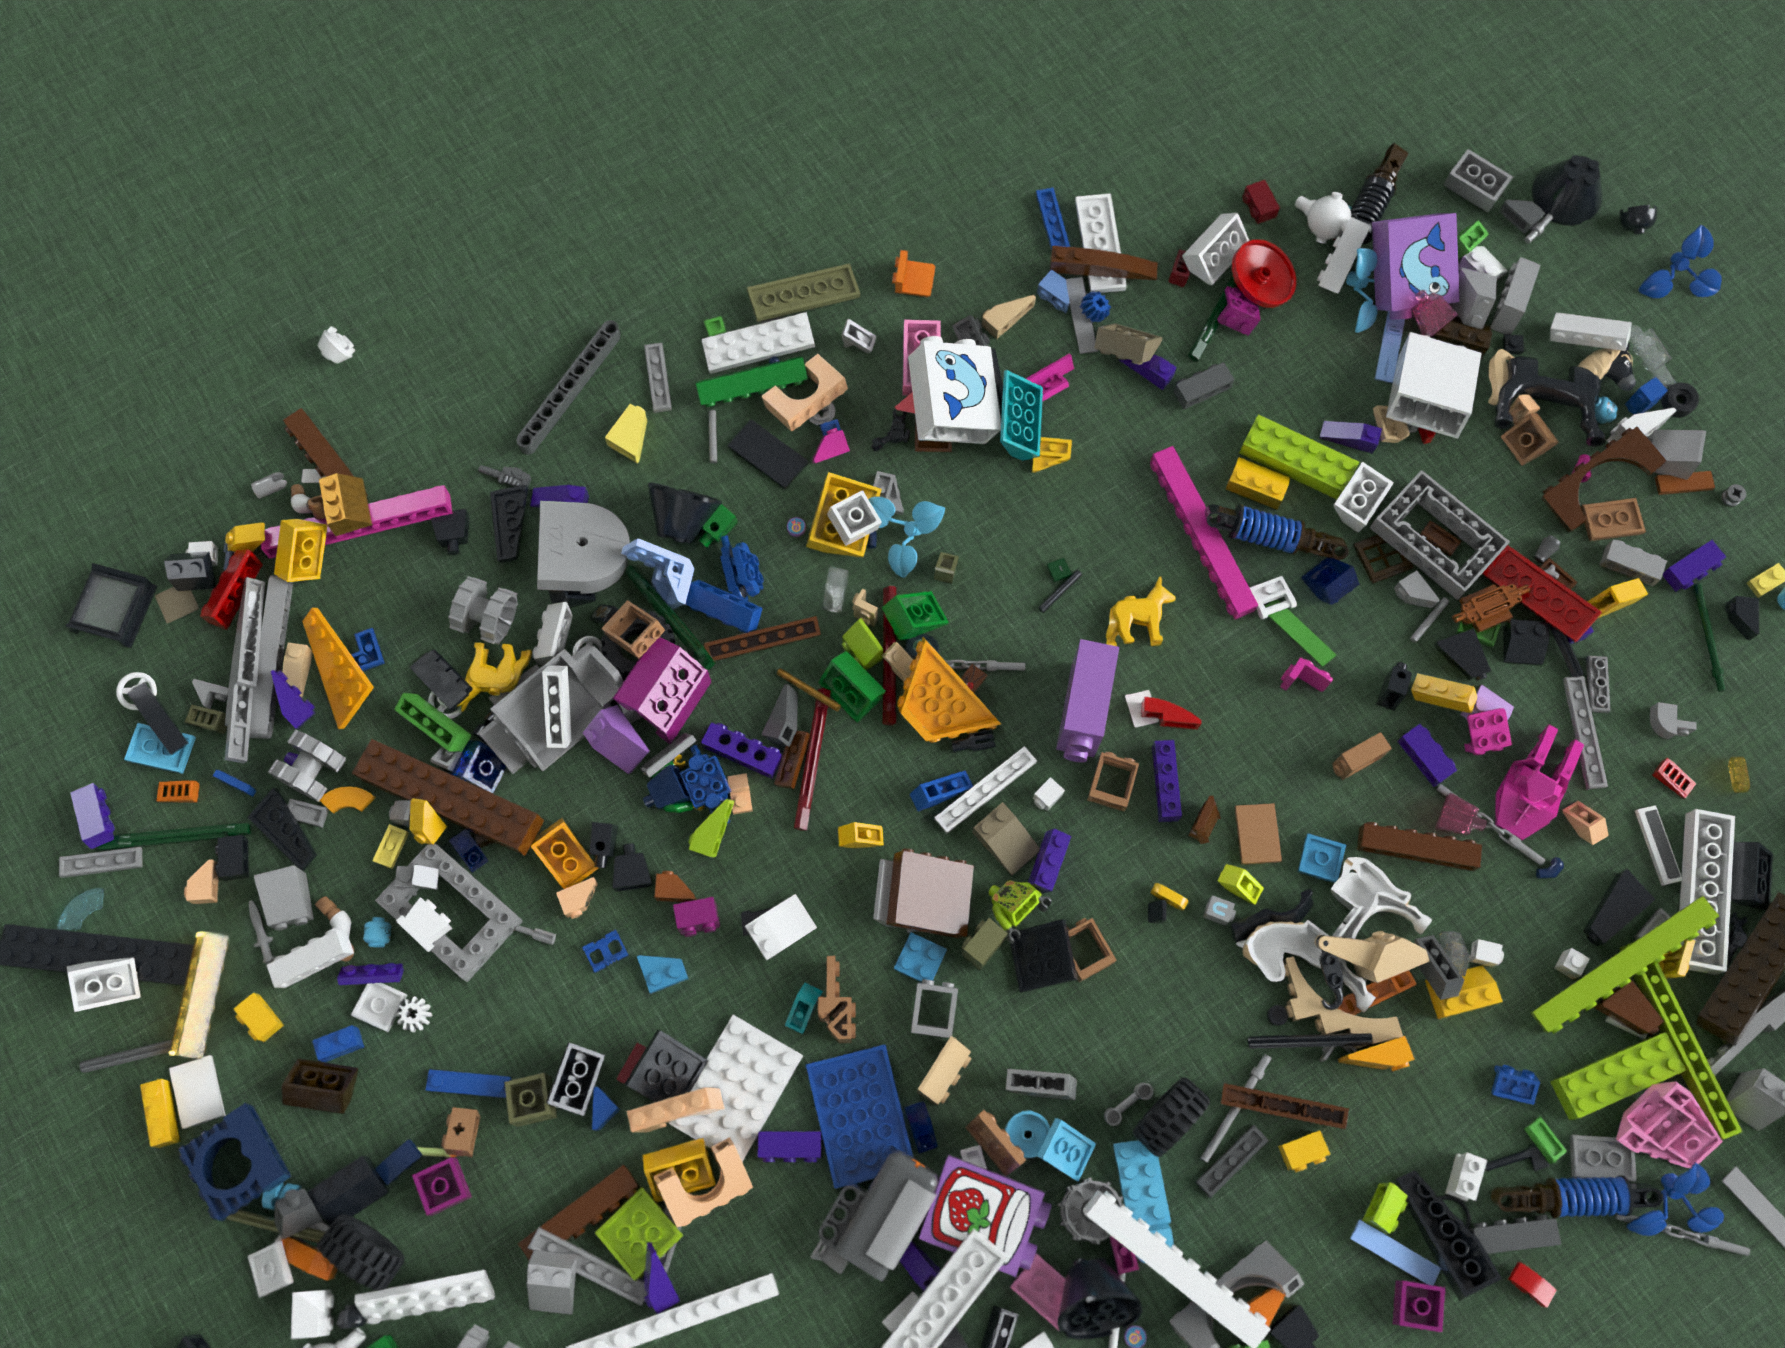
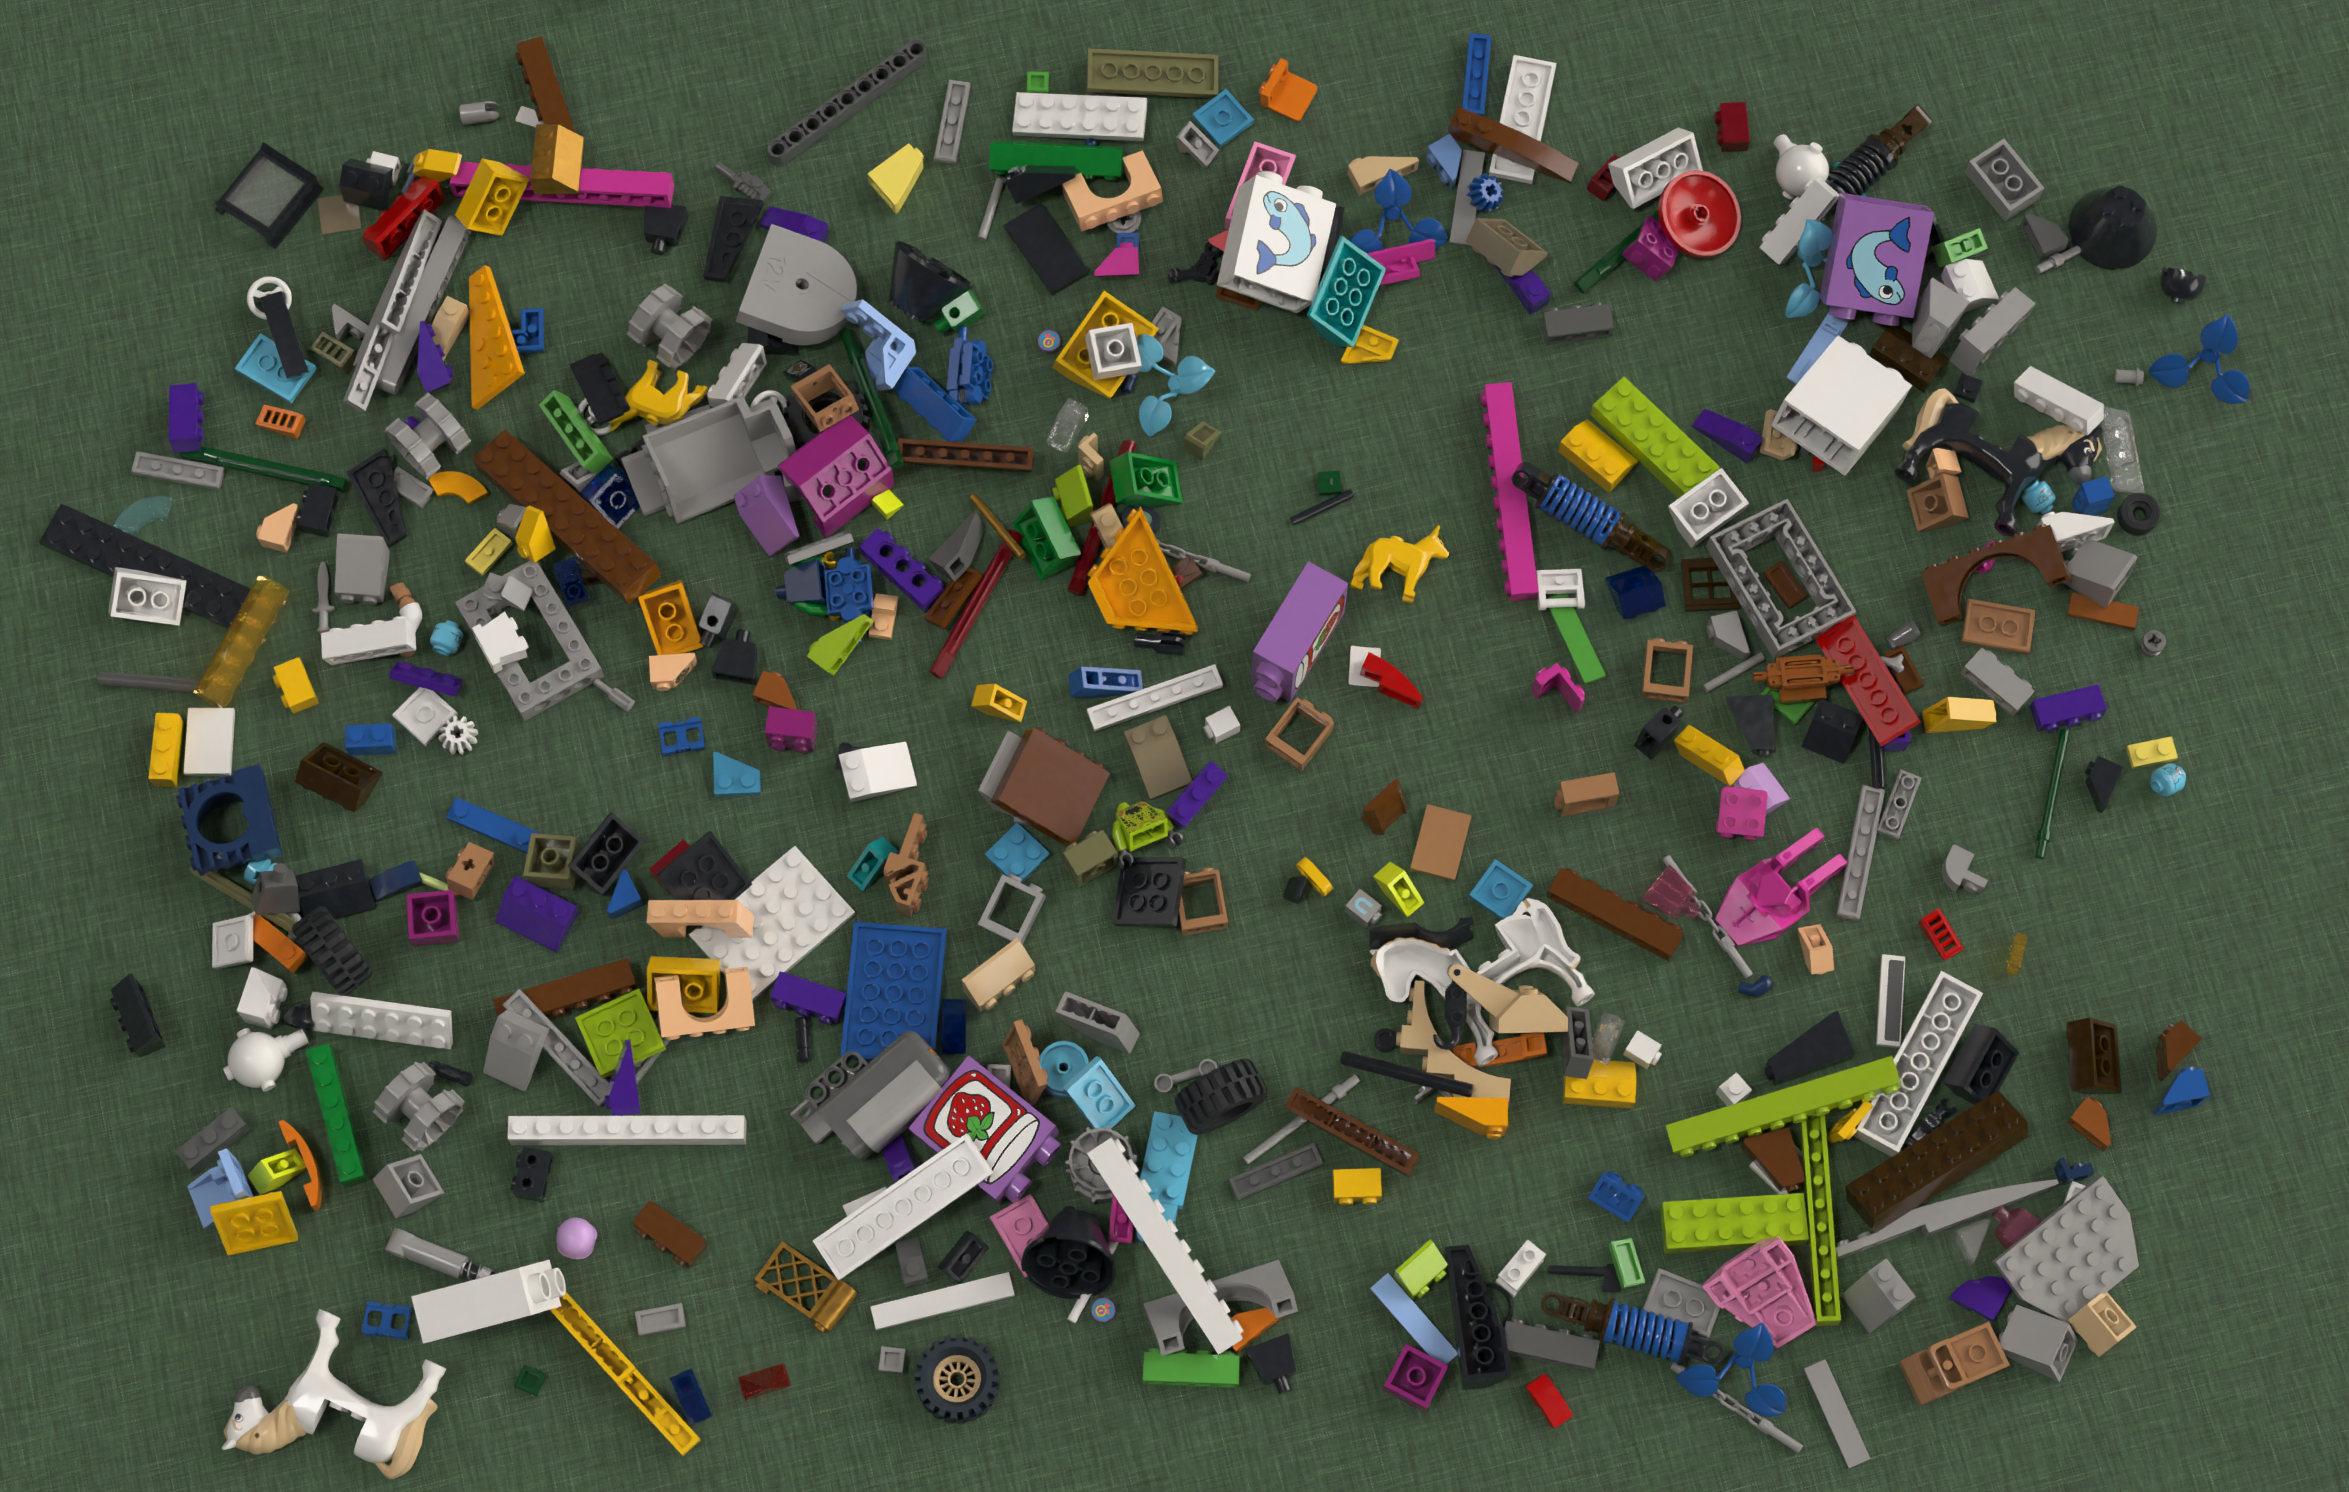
camera: 20 degrees right, 0 degrees up
(235, 783) = (344, 431): blue tile -> none
(305, 504) = (512, 148): piece -> none
(500, 1321) = (451, 1073): none -> black axle
(531, 1151) = (536, 914): none -> dark purple slope
(557, 706) = (715, 456): white brick -> none
(711, 699) = (887, 503): none -> neon yellow slope
(740, 402) = (1034, 179): none -> black slope
(797, 1183) = (803, 1039): none -> black axle
(870, 311) = (1223, 118): none -> dark azure plate
(971, 329) = (1330, 179): dark grey bracket -> none
(1027, 326) = (1391, 193): none -> blue plant
(1166, 781) = (1359, 752): dark purple brick -> none
(1385, 653) = (1666, 692): none -> medium nougat window
(1427, 755) = (1666, 818): dark purple brick -> none
(1432, 312) = (1872, 320): clear pink torso -> none
(1631, 298) = (2129, 376): none -> light grey pin

